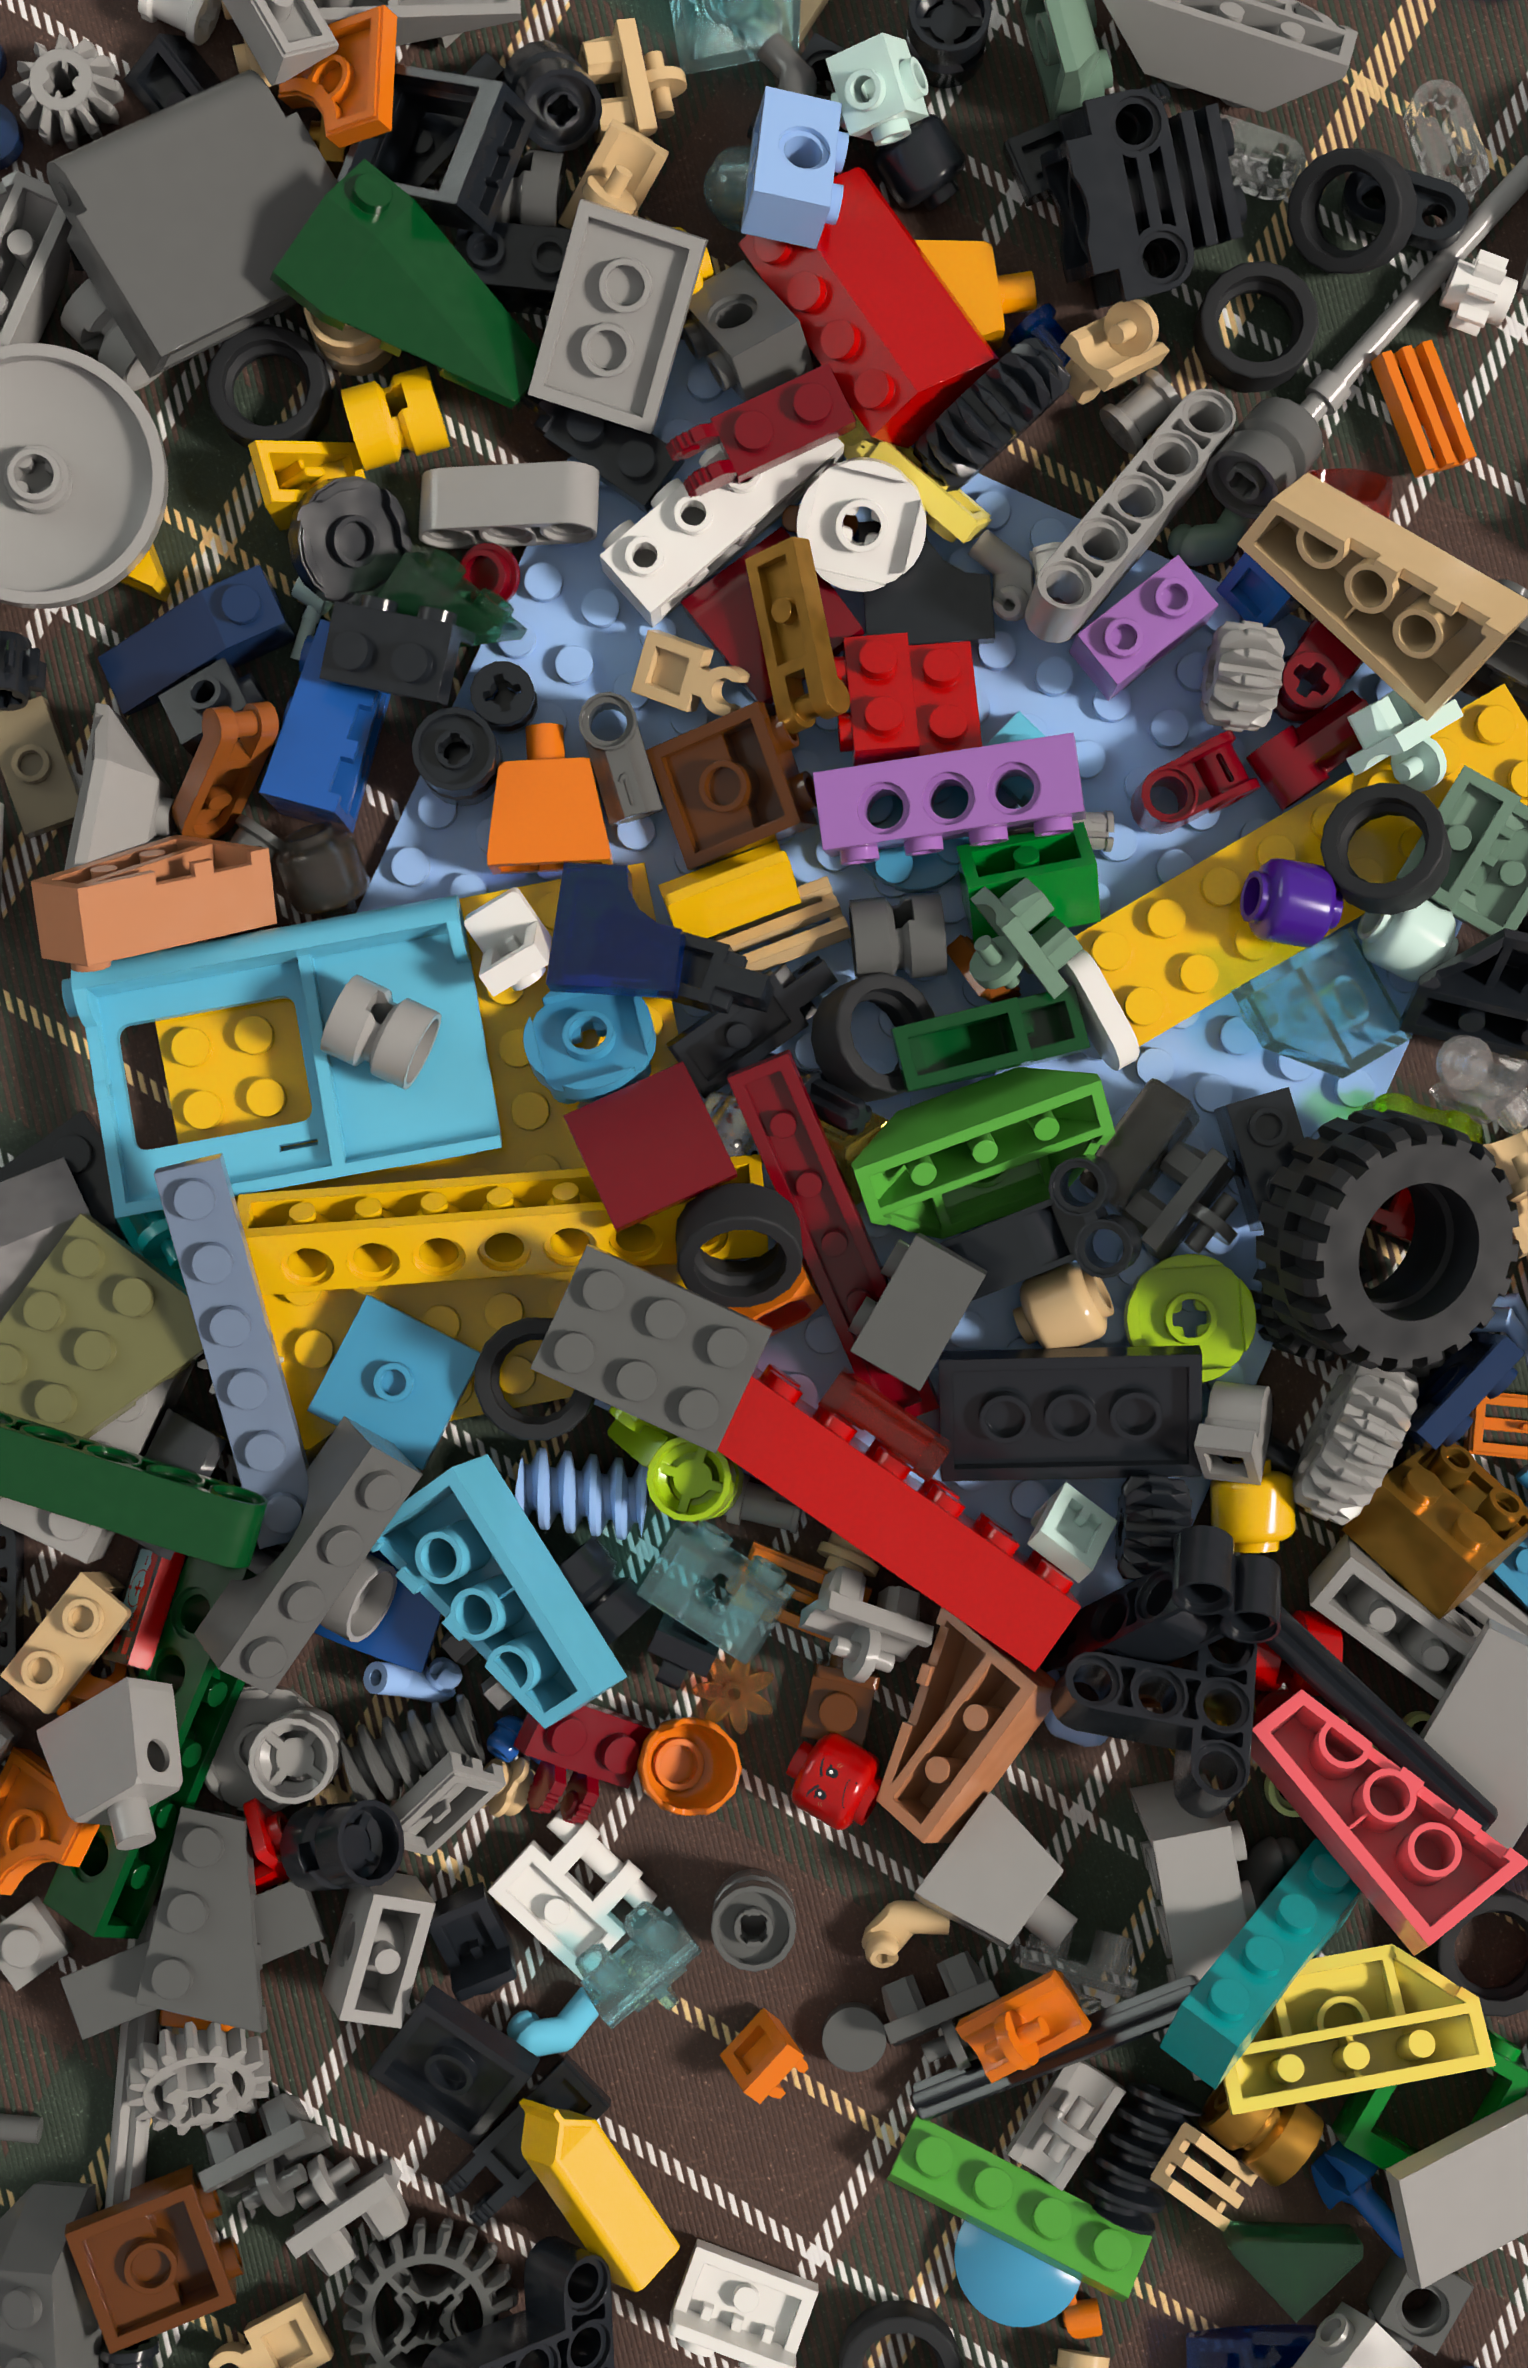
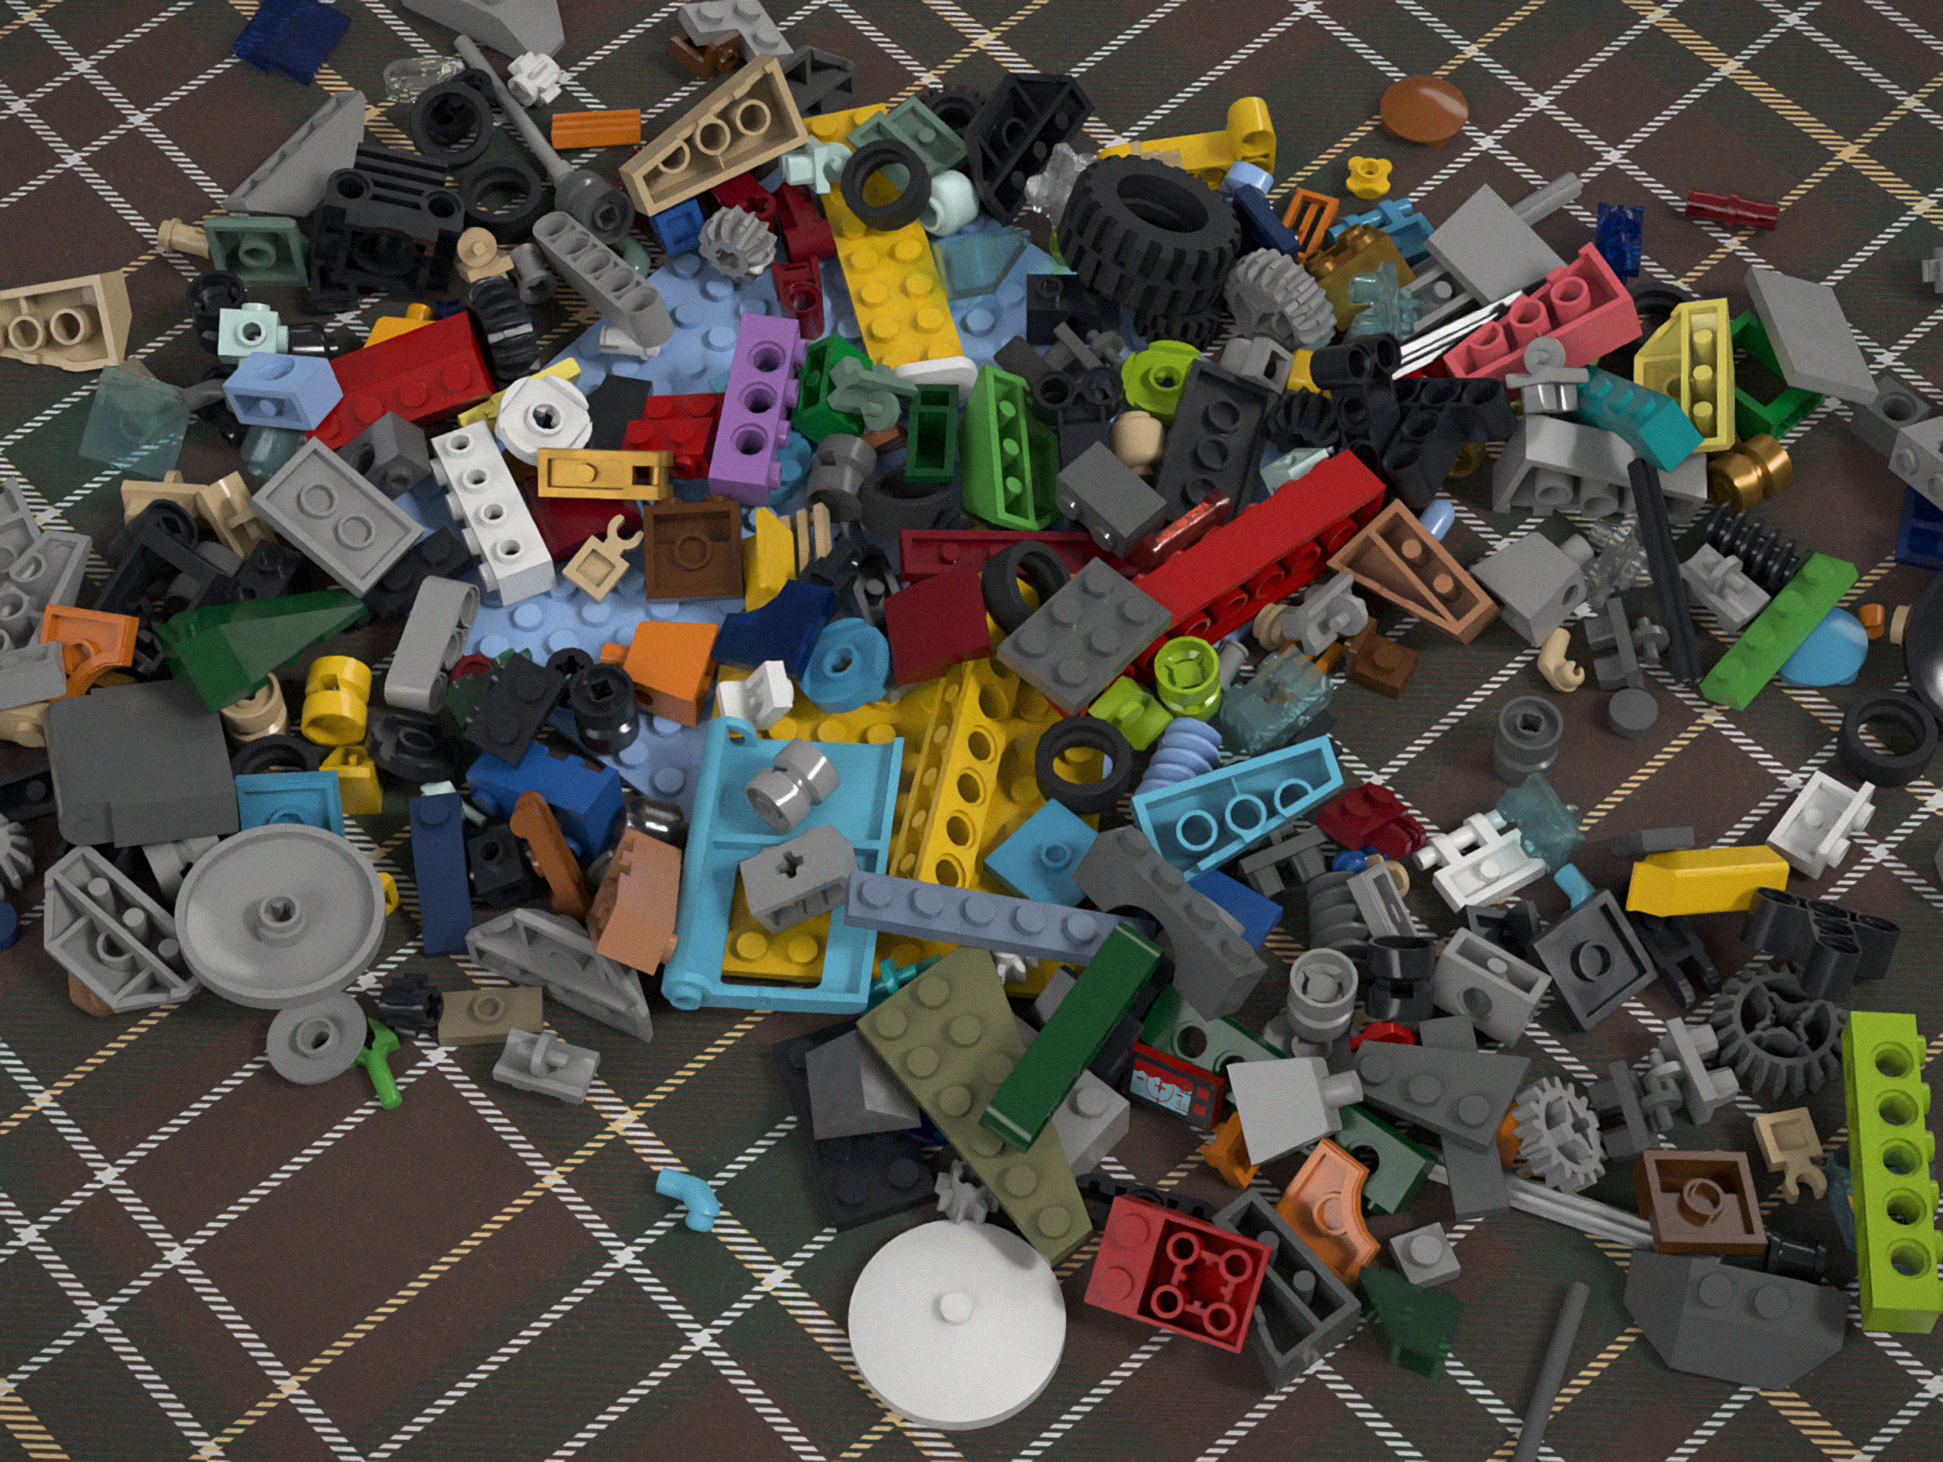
camera: 70 degrees left, 30 degrees down
(68, 1641) = (1187, 1140): tan bracket -> none
(199, 432) = (292, 798): none -> dark azure plate
(259, 1086) = (798, 878): none -> light grey brick
(432, 1685) = (1294, 921): light blue arm -> none
(615, 2118) = (1652, 841): none -> dark grey tile
(620, 764) = (638, 608): dark grey piece -> none
(689, 1766) = (1402, 754): orange hair -> none
(736, 1706) = (1357, 729): clear orange plant -> none
(763, 2057) = (1631, 765): orange tile -> none
(766, 430) = (456, 448): dark red hinge -> none
(835, 1781) = (1437, 667): red head -> none
(1010, 572) = (614, 363): light grey arm -> none
(1024, 2025) = (1642, 575): orange hips -> none
(1143, 627) = (684, 293): medium lavender brick -> none
(1223, 2190) = (1777, 511): tan tile -> none
(1277, 1846) = (1549, 385): none -> light grey hips
(1291, 902) = (902, 245): dark purple head -> none
(1295, 2259) = (1856, 485): clear green slope -> none
(1347, 2178) = (1814, 432): blue bar -> none
(1353, 1602) = (1390, 307): none -> clear light blue hips

